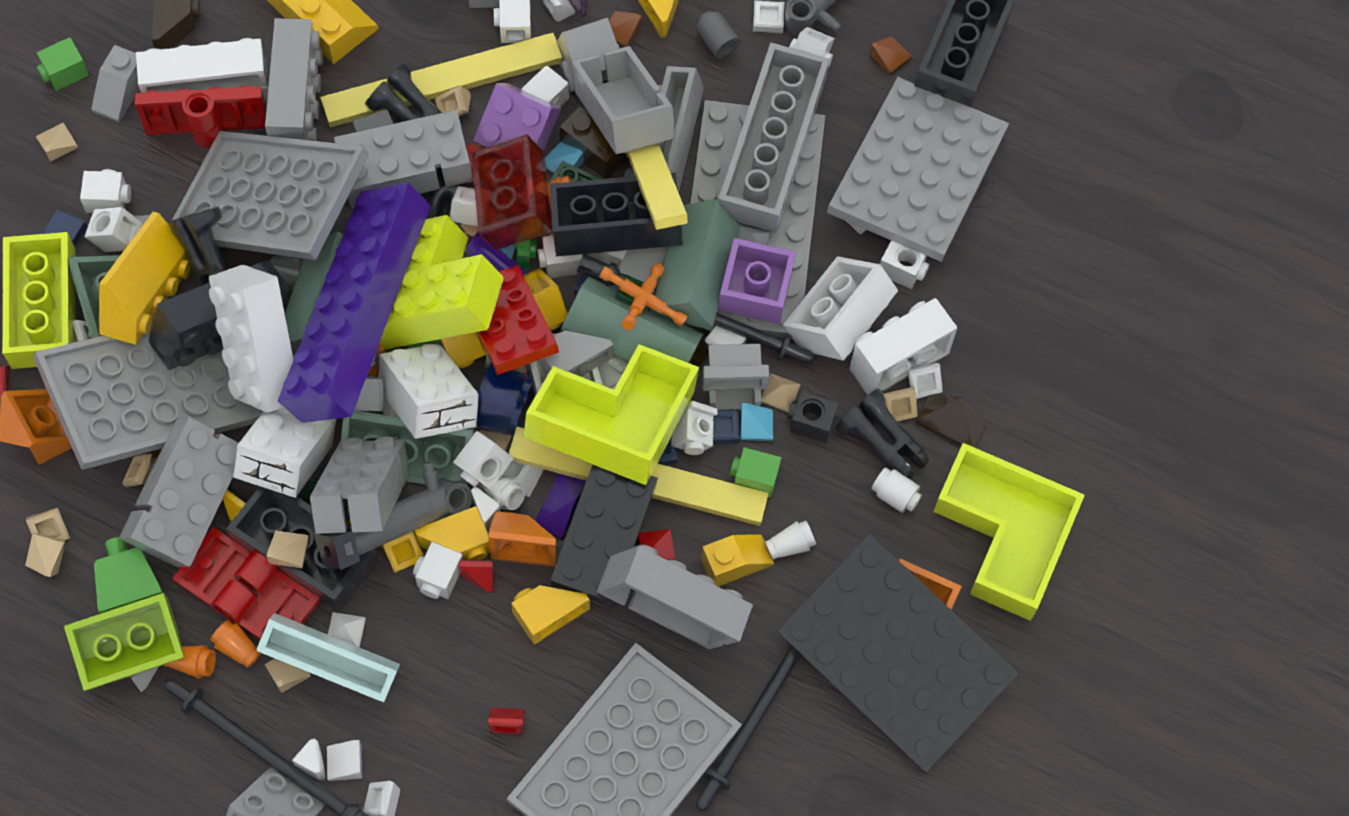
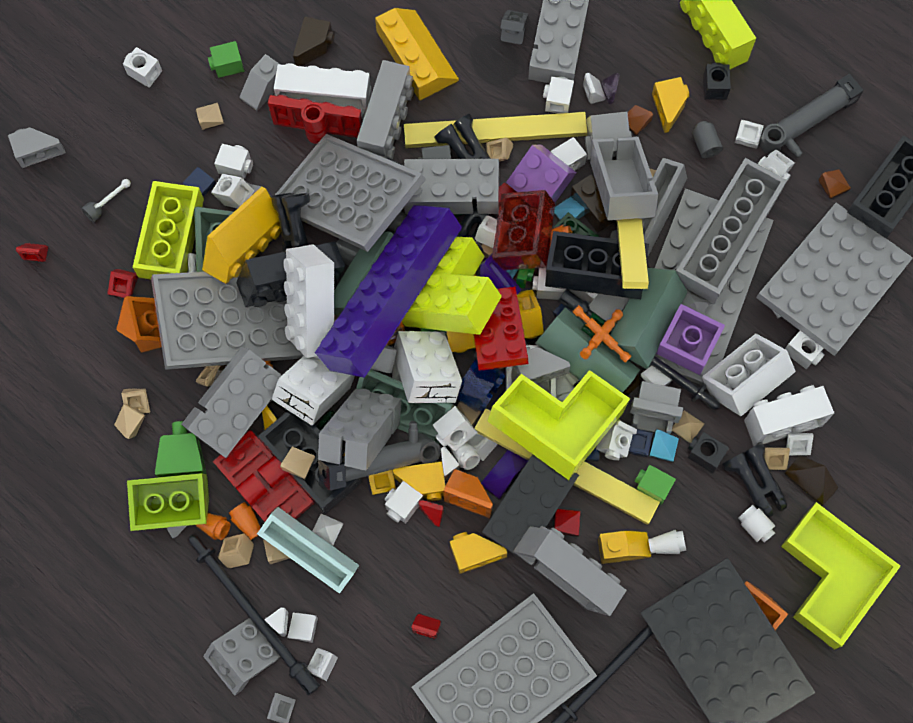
camera: 20 degrees right, 5 degrees up
(231, 686) = (236, 551): none -> tan slope

